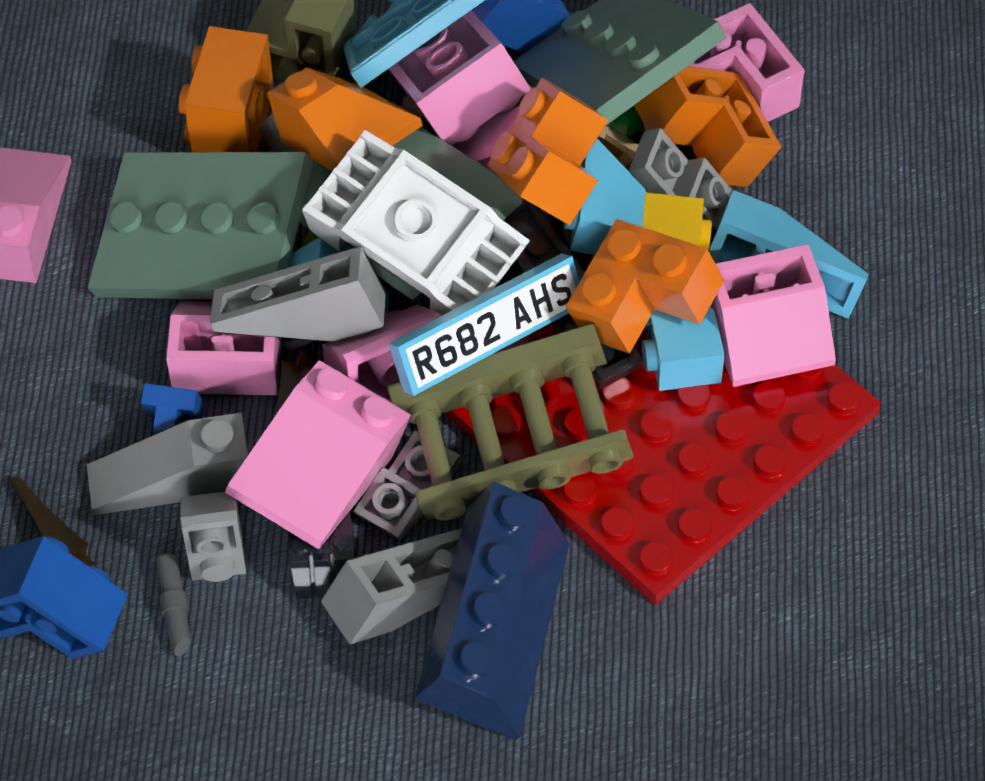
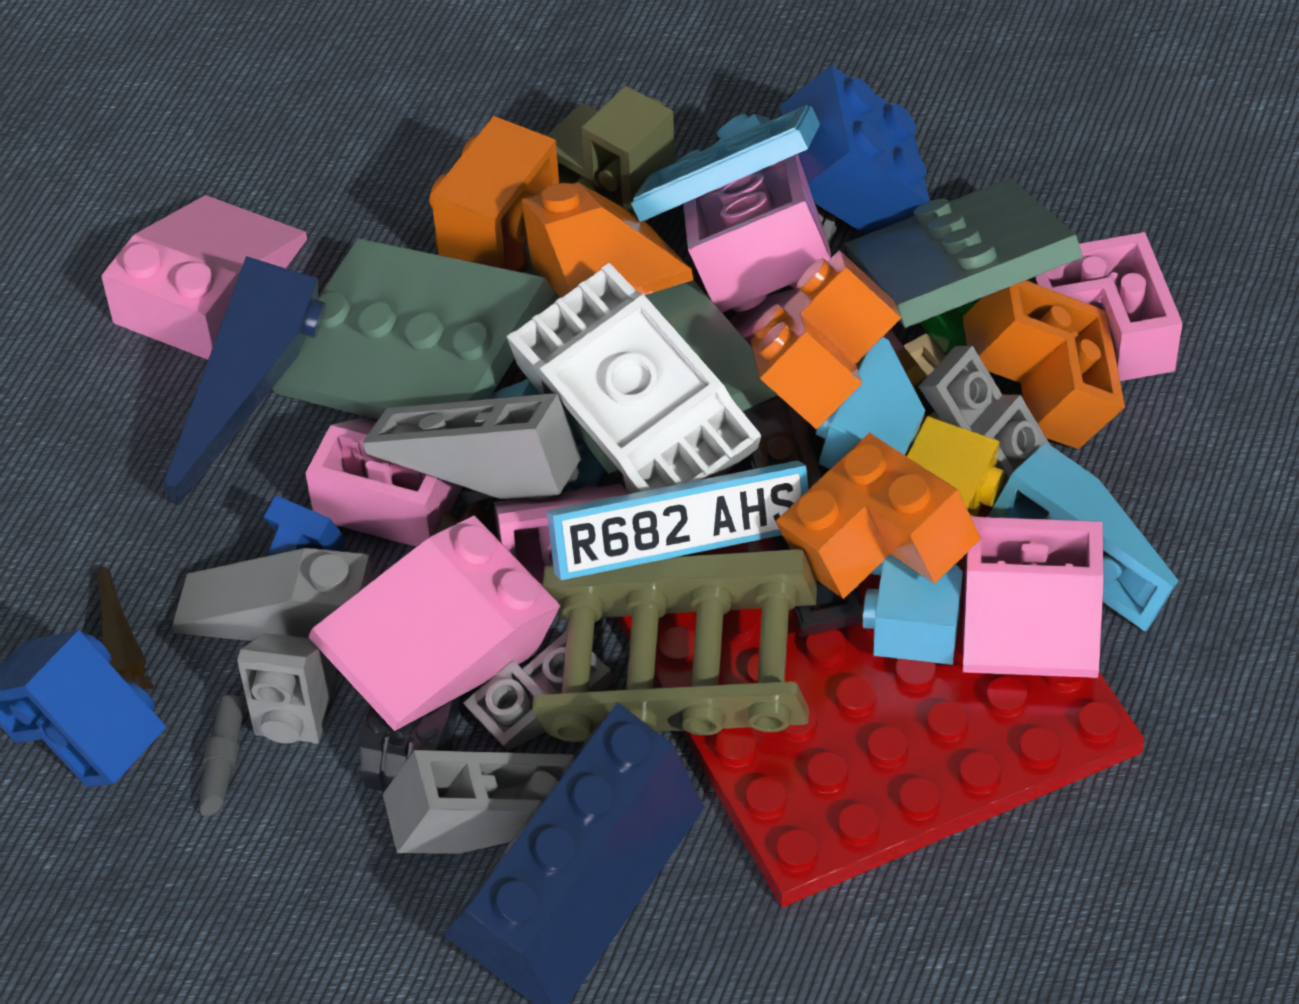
camera: 20 degrees right, 5 degrees down
(79, 256) = (252, 351): none -> dark blue wedge

